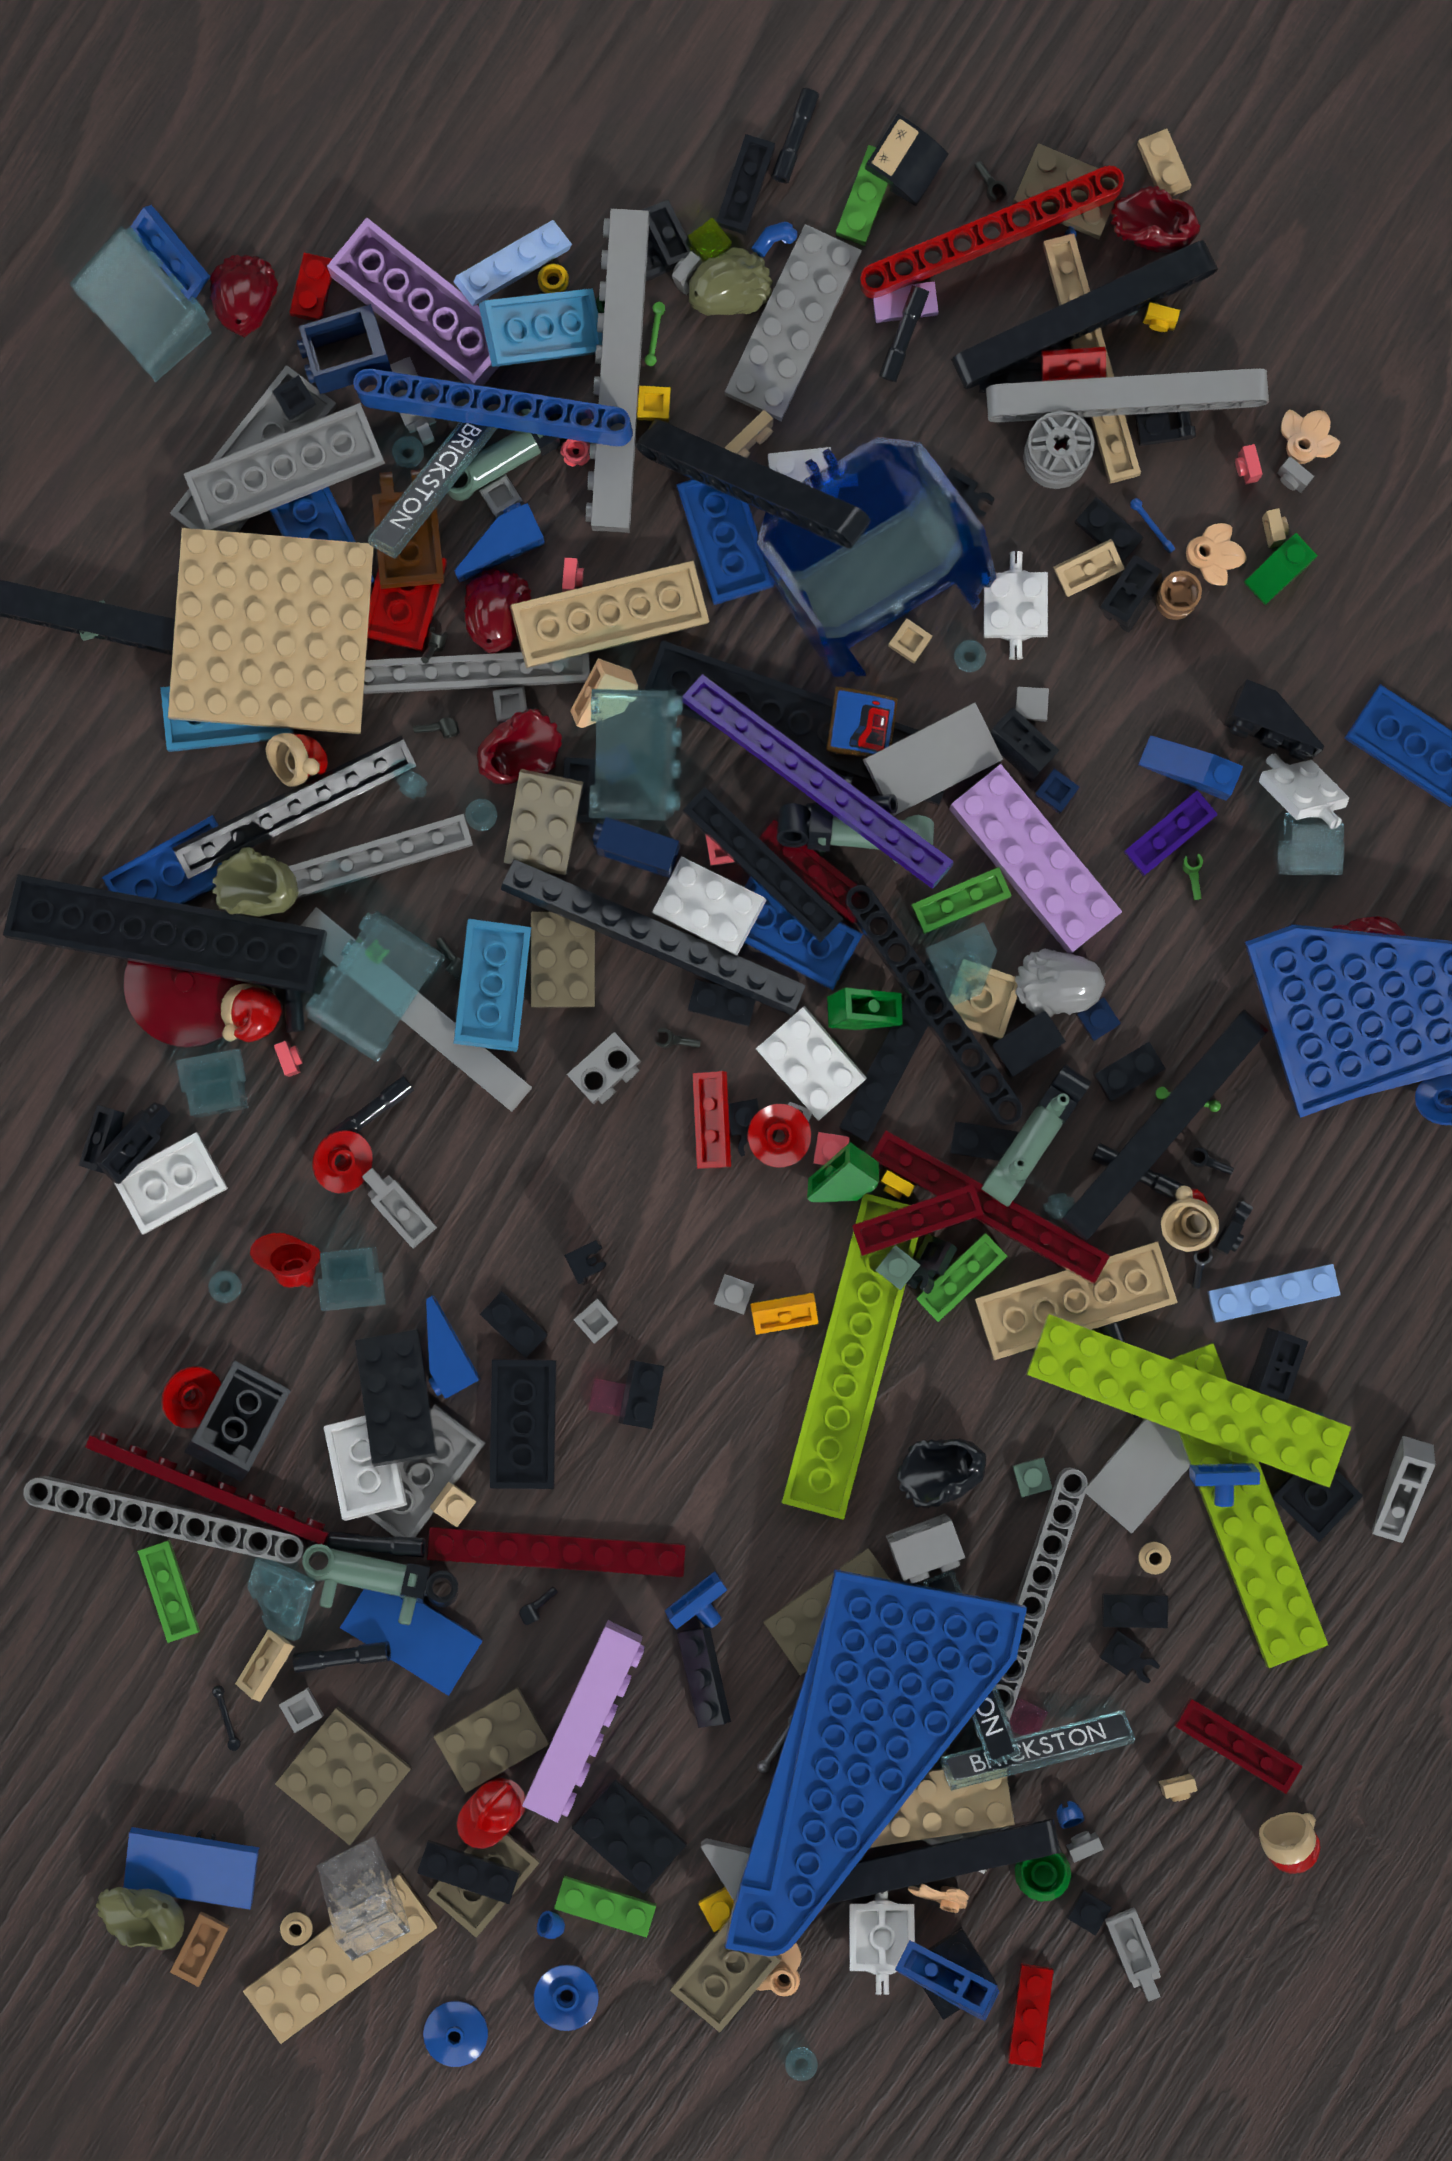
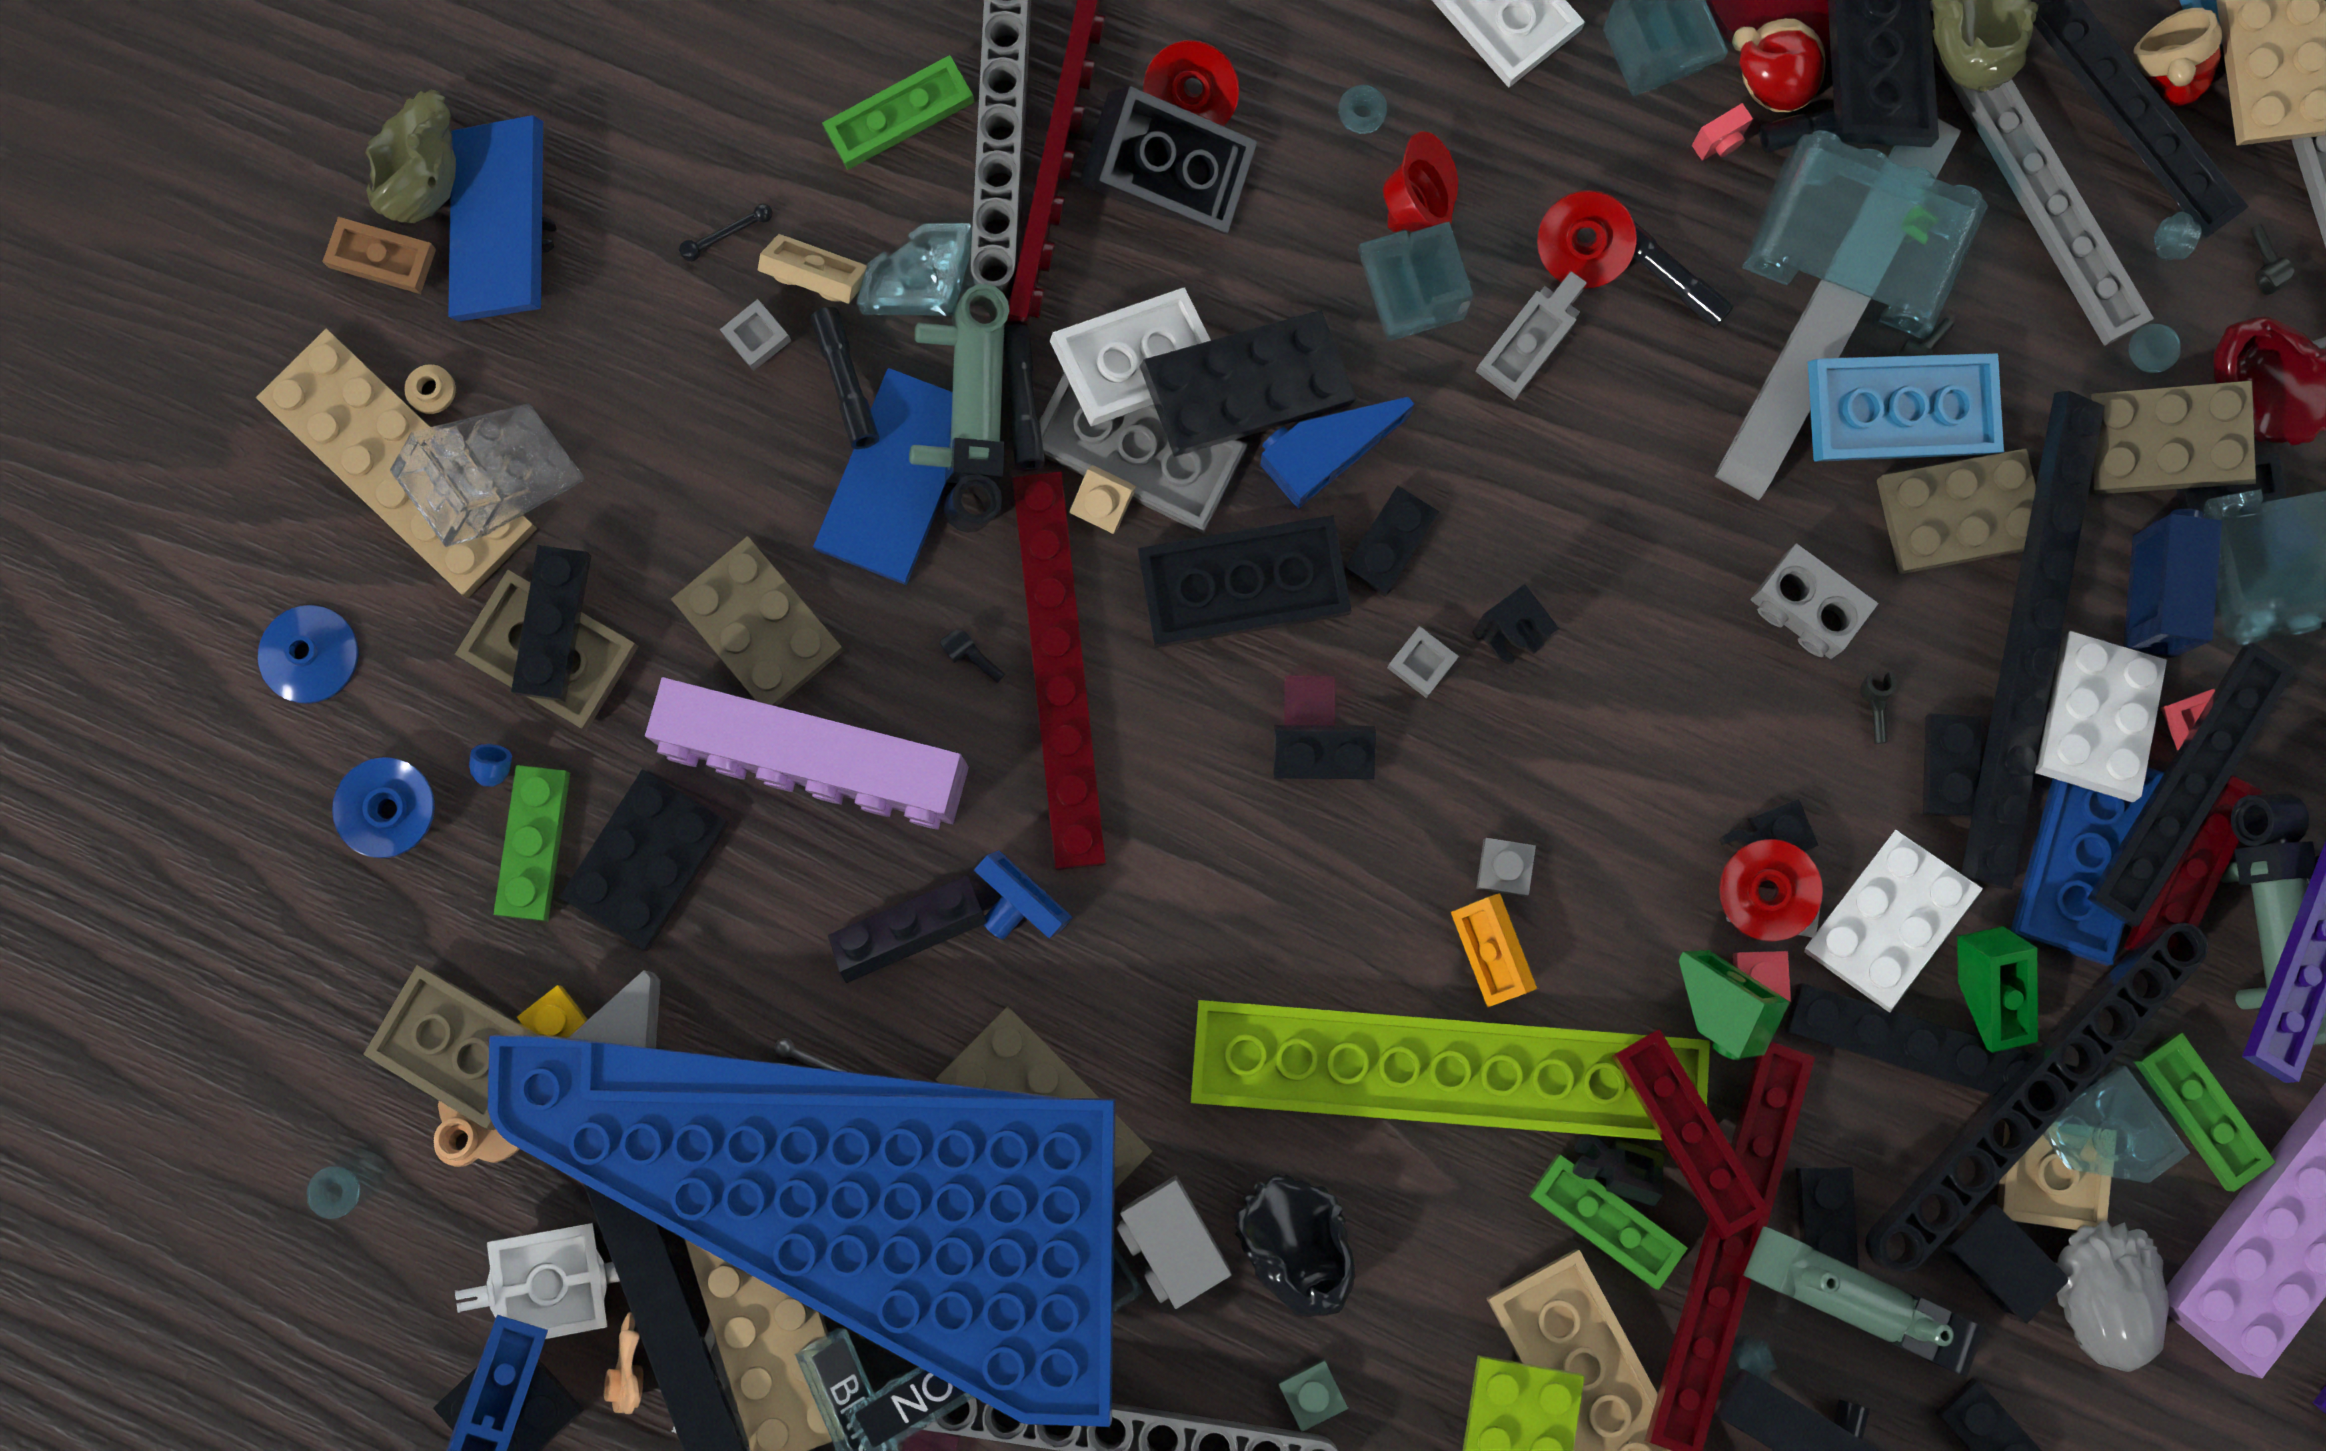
camera: 80 degrees right, 5 degrees down
(343, 1776) = (668, 416): dark tan plate -> none
(490, 1813) = (645, 640): red piece -> none
(711, 1120) = (1770, 781): red plate -> none
(896, 1185) = (1732, 1090): yellow plate -> none
(897, 1267) = (1605, 1115): sand green plate -> none
(1098, 1019) = (2065, 1370): dark blue plate -> none

